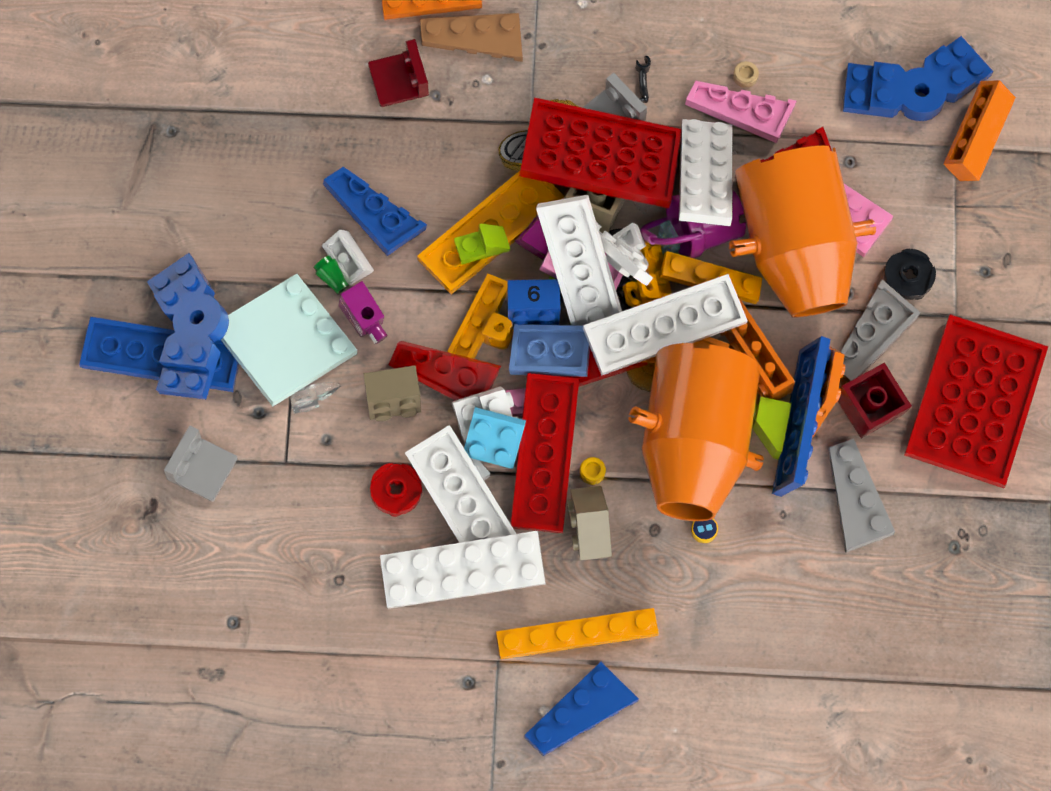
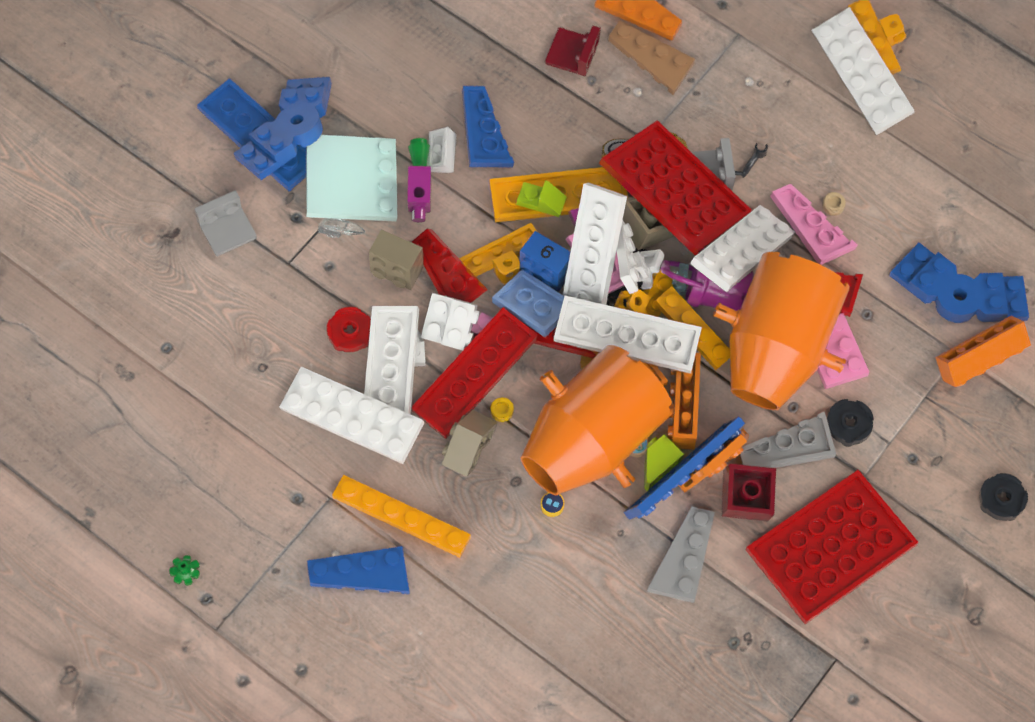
camera: 35 degrees right, 5 degrees down
(494, 437) = (443, 336): medium azure plate -> none

